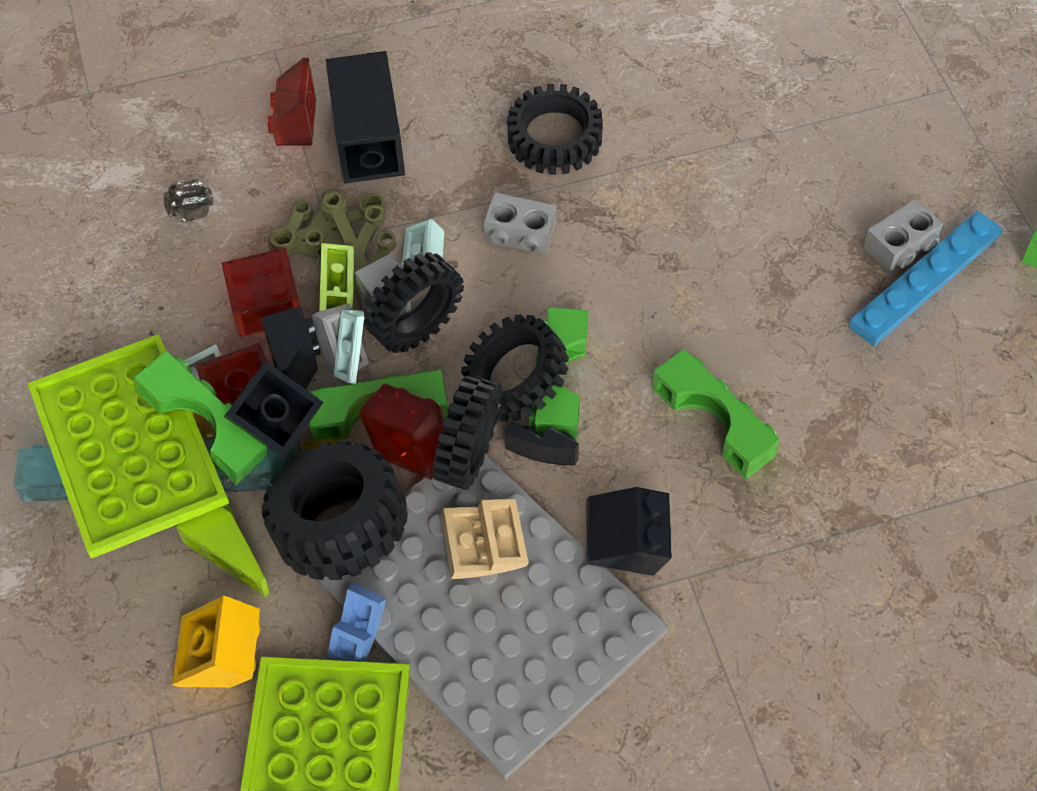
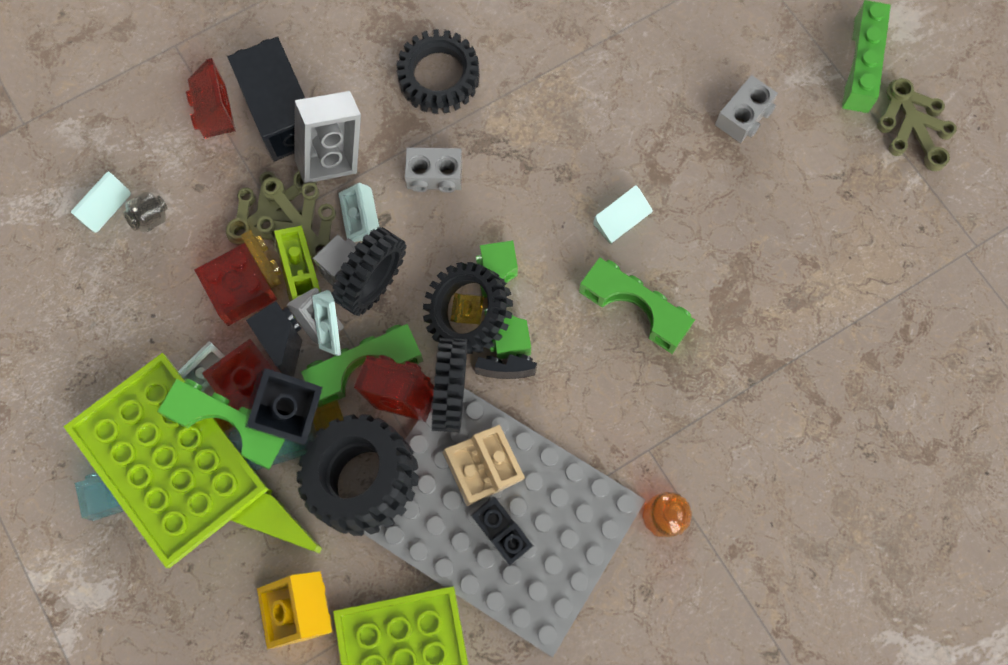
camera: 15 degrees left, 15 degrees up
(143, 181) = (101, 202): none -> light aqua slope
(304, 283) = (257, 248): none -> clear yellow plate
(358, 626) = (403, 566): medium blue slope -> none
(408, 158) = (327, 136): none -> light grey brick
(484, 613) = (501, 530): none -> black slope
(513, 368) = (467, 308): none -> clear yellow plate
(629, 530) = (596, 428): black slope -> none
(691, 651) = (667, 514): none -> clear orange hair
(725, 315) = (622, 214): none -> light aqua slope
(925, 278) = (771, 141): dark azure plate -> none

